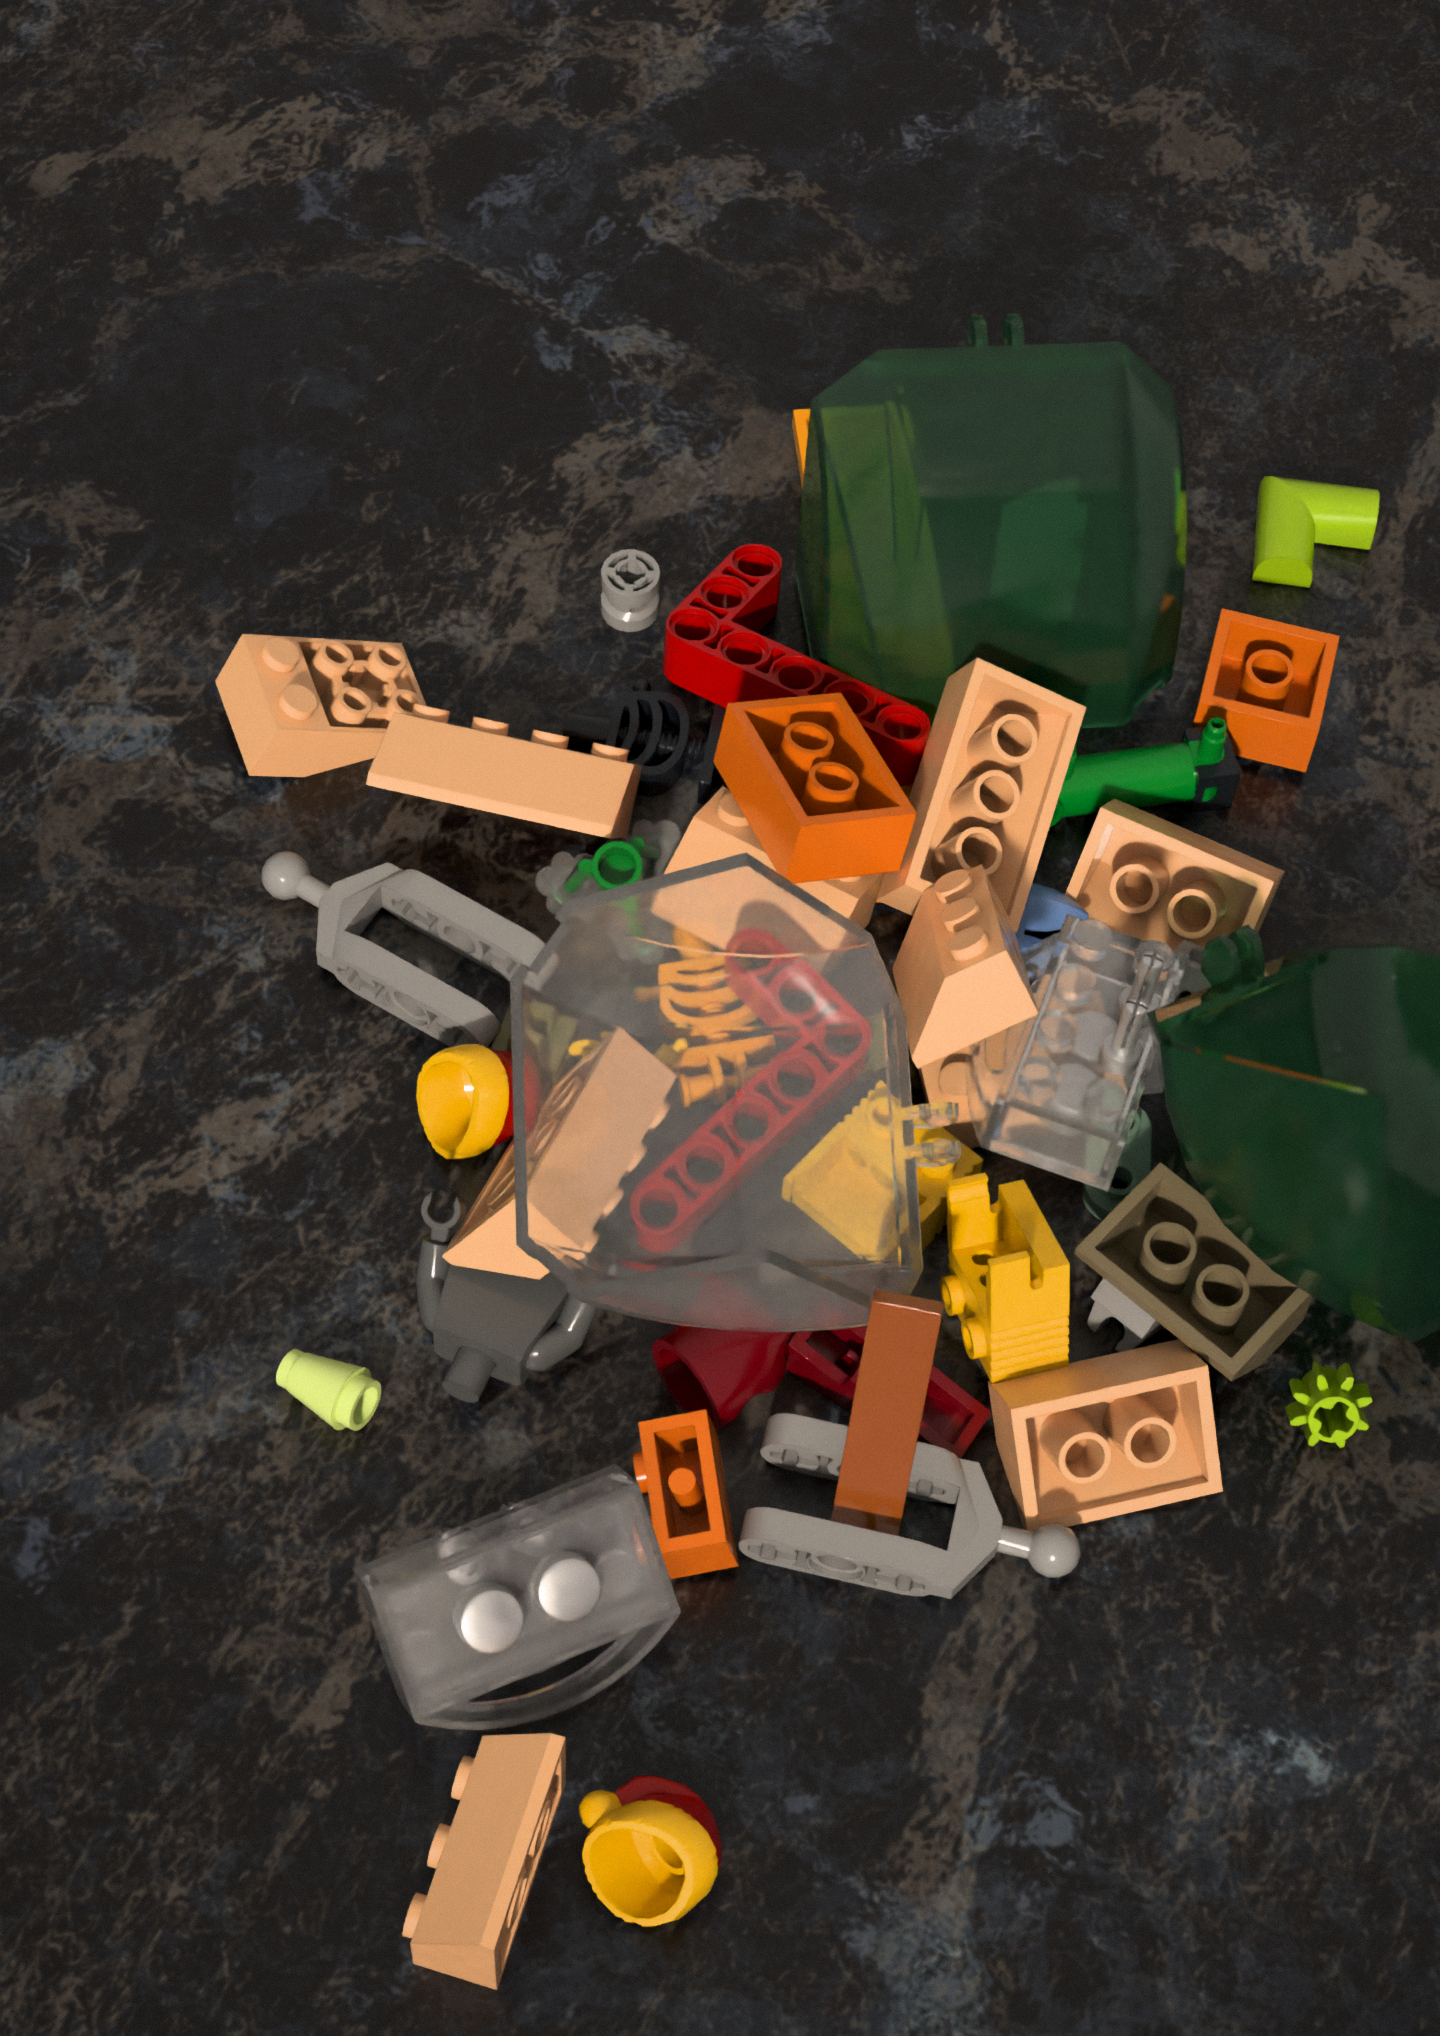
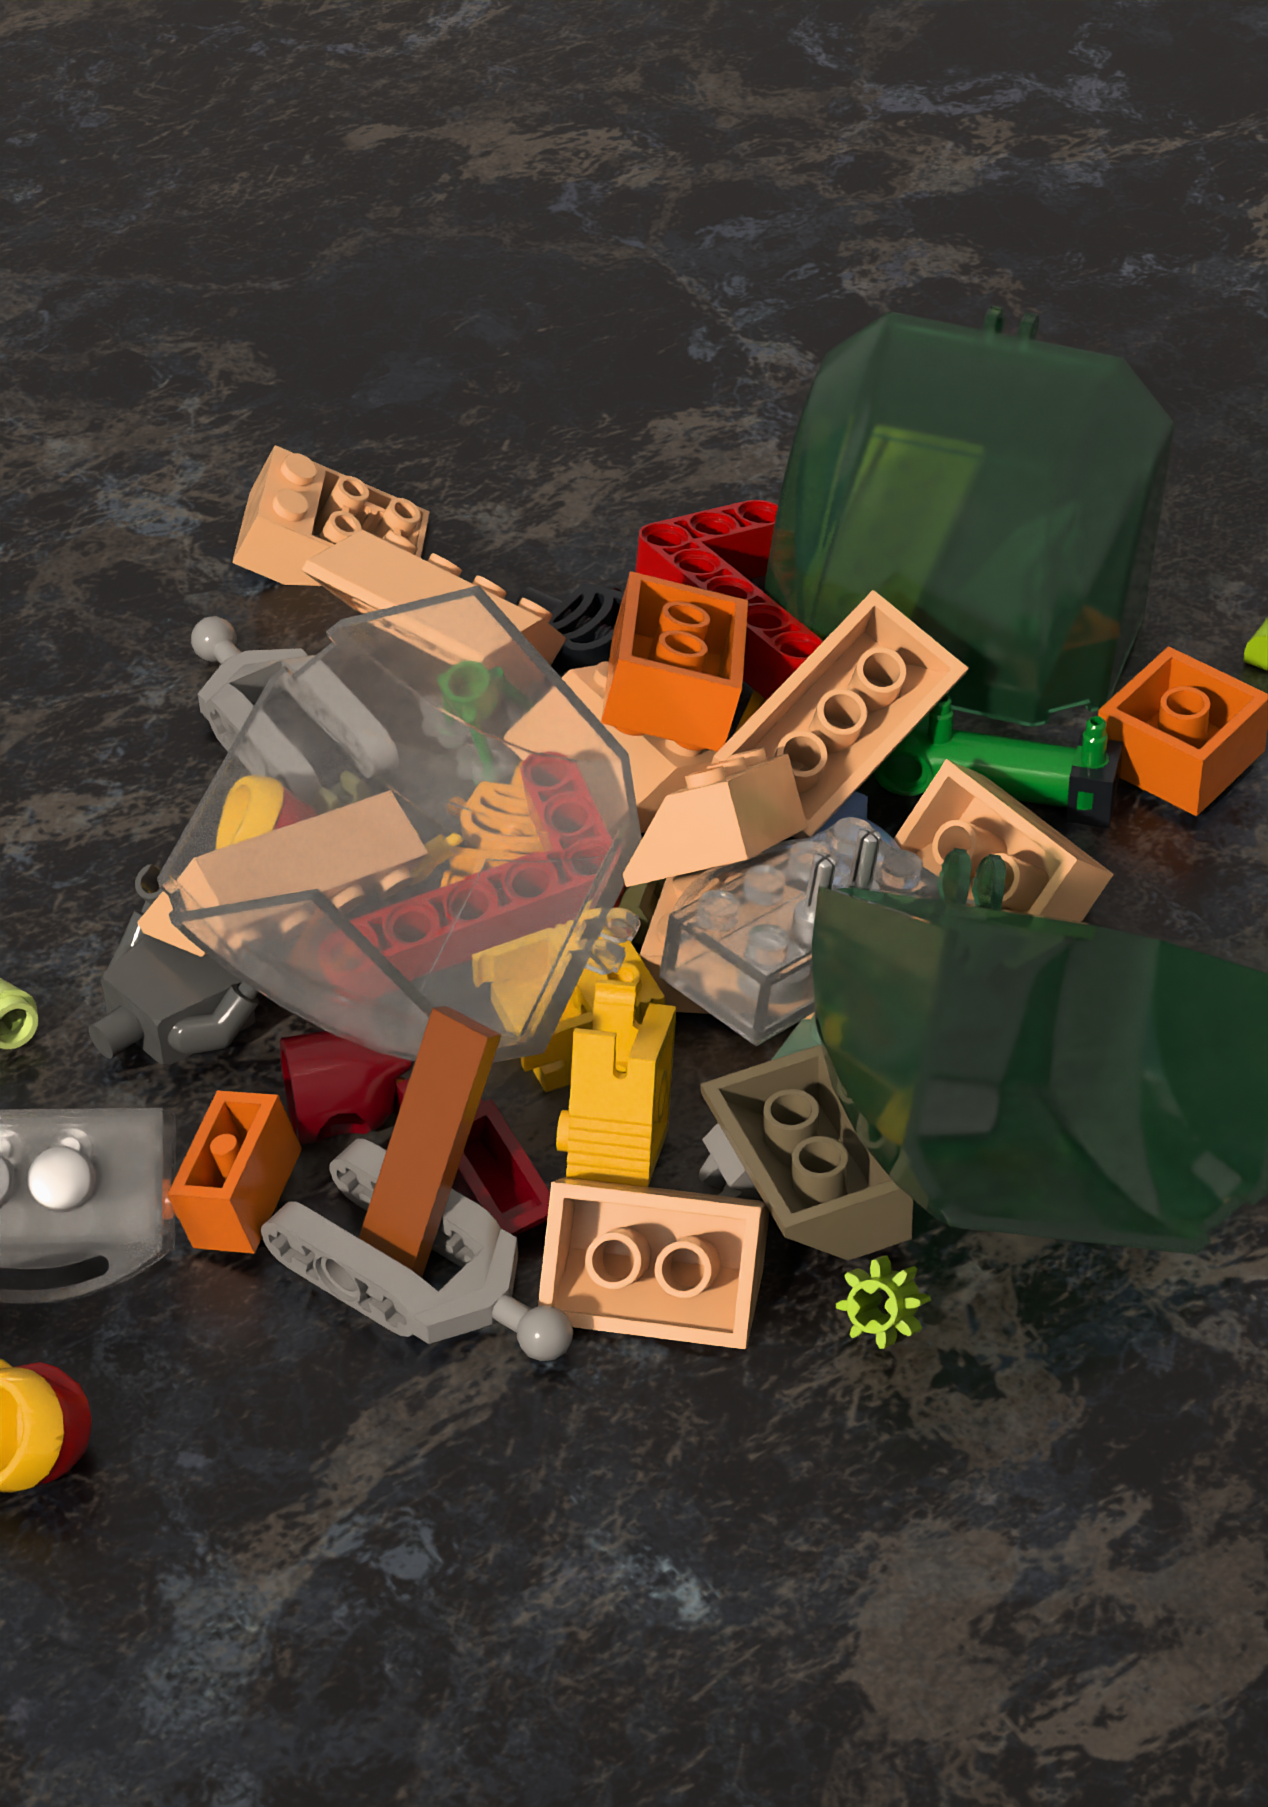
camera: 30 degrees right, 15 degrees down
(630, 590) = (639, 504): light grey wheel -> none

